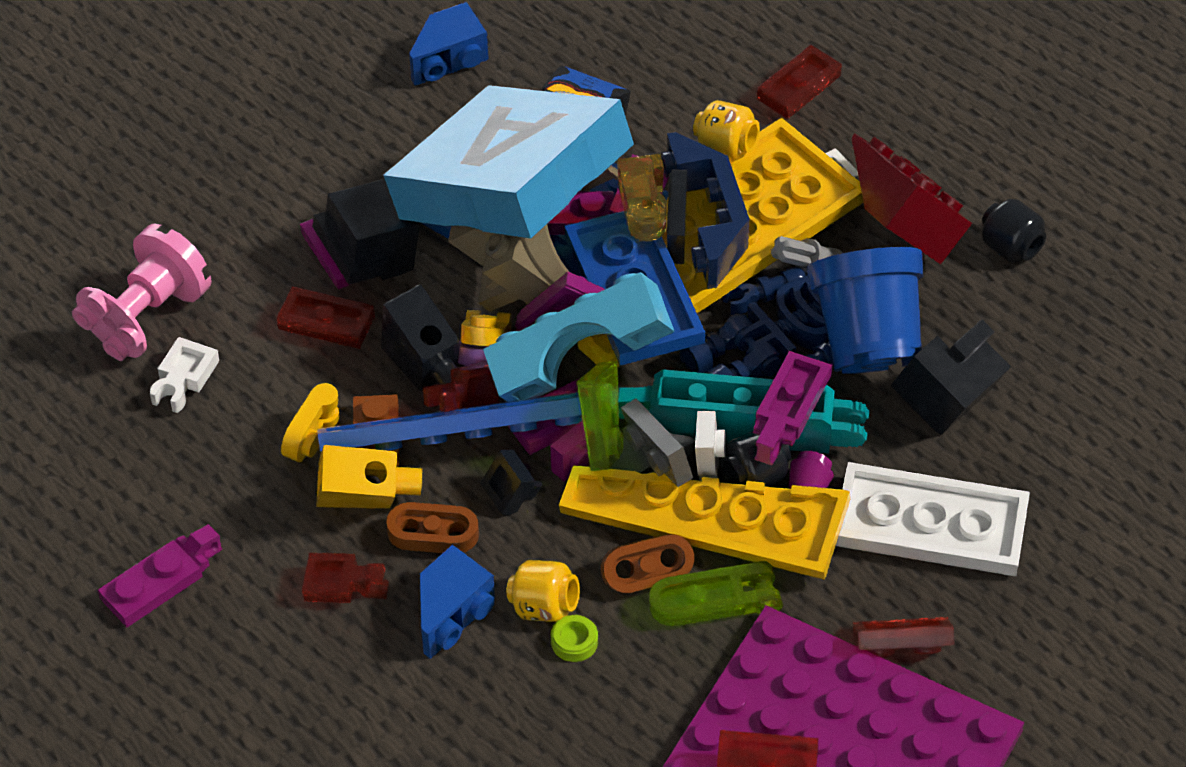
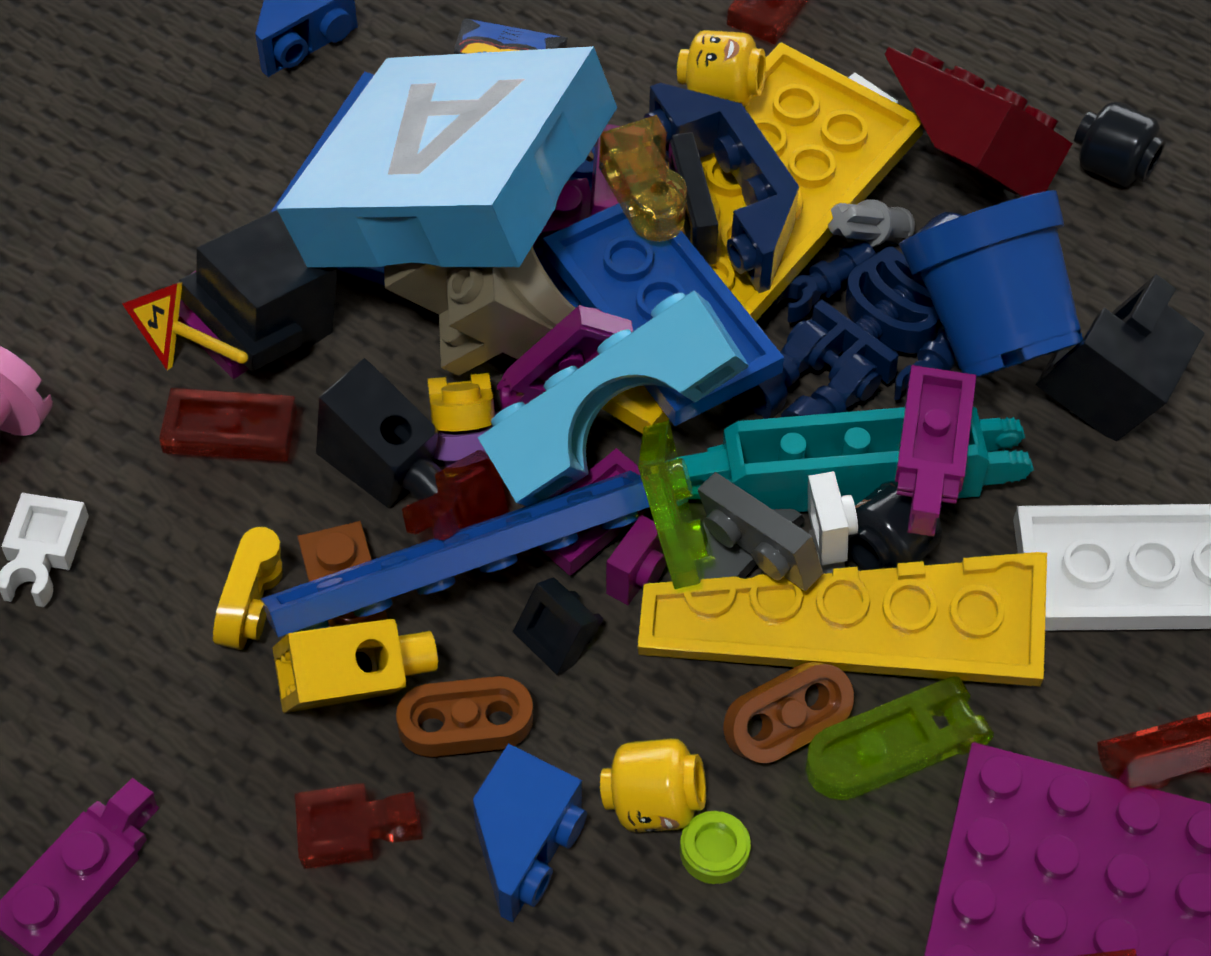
camera: 15 degrees left, 5 degrees up
(295, 240) = (157, 319): none -> yellow piece
(810, 470) = (969, 531): magenta cone -> none

